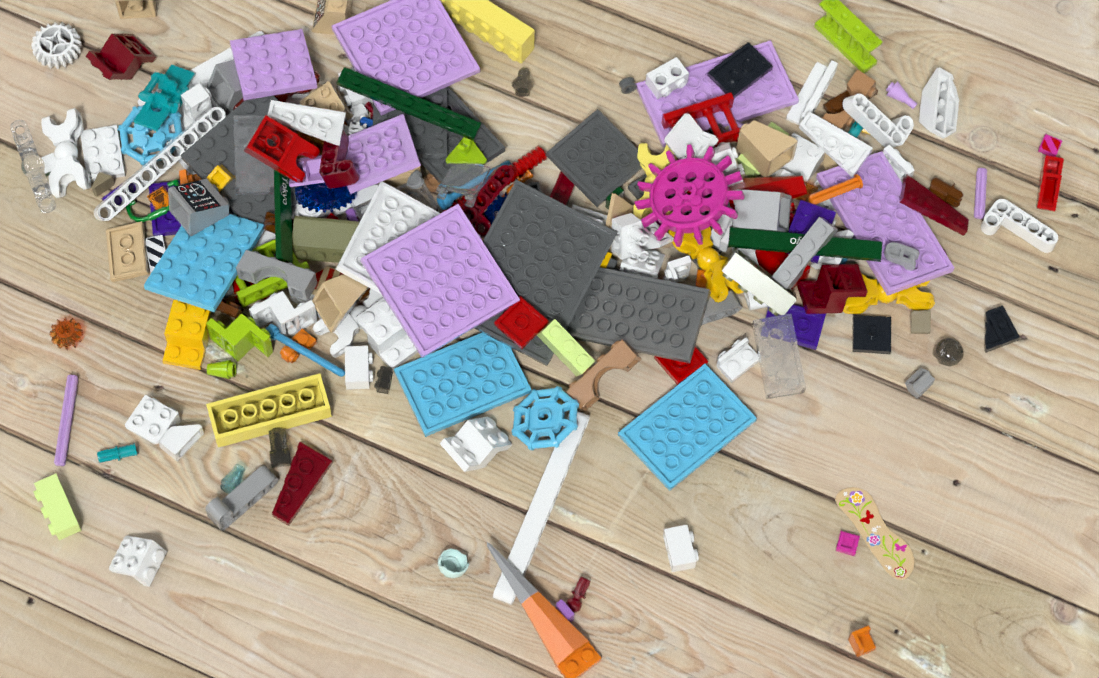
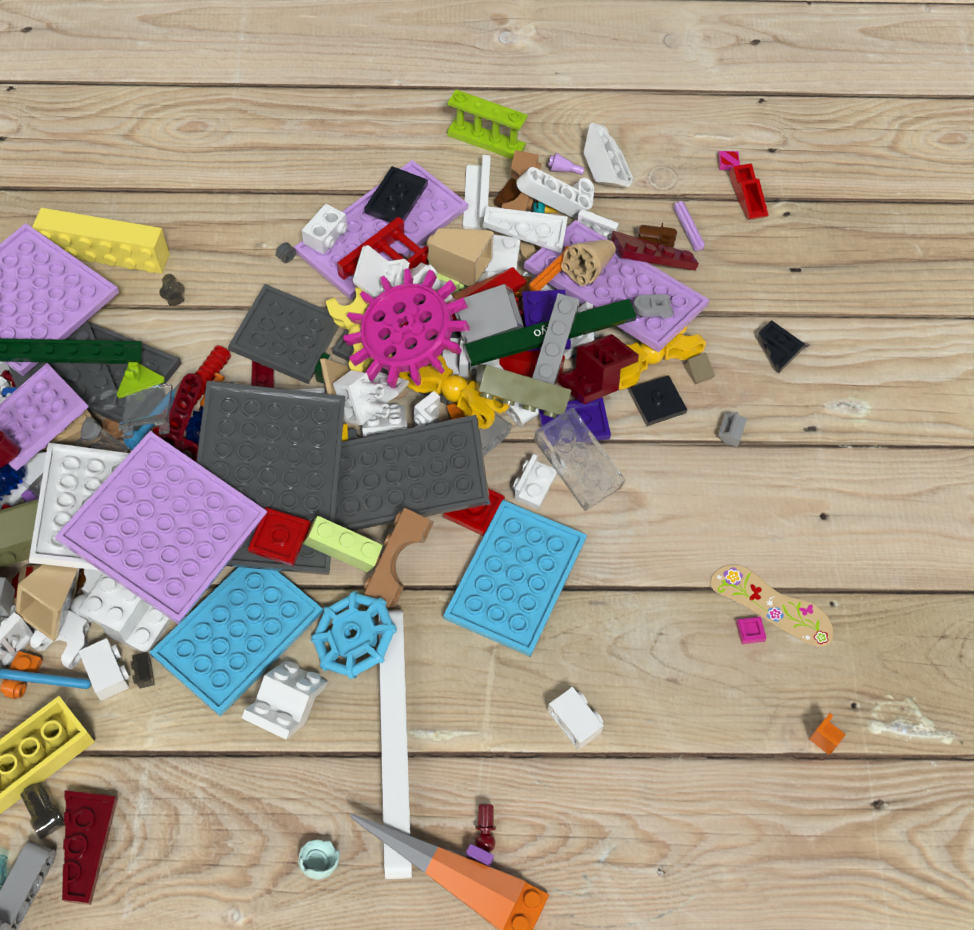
camera: 25 degrees left, 5 degrees down
(867, 194) = (587, 260): none -> tan cone
(948, 351) = (743, 386): clear smoke hair -> none
(1019, 228) = (745, 239): white beam -> none

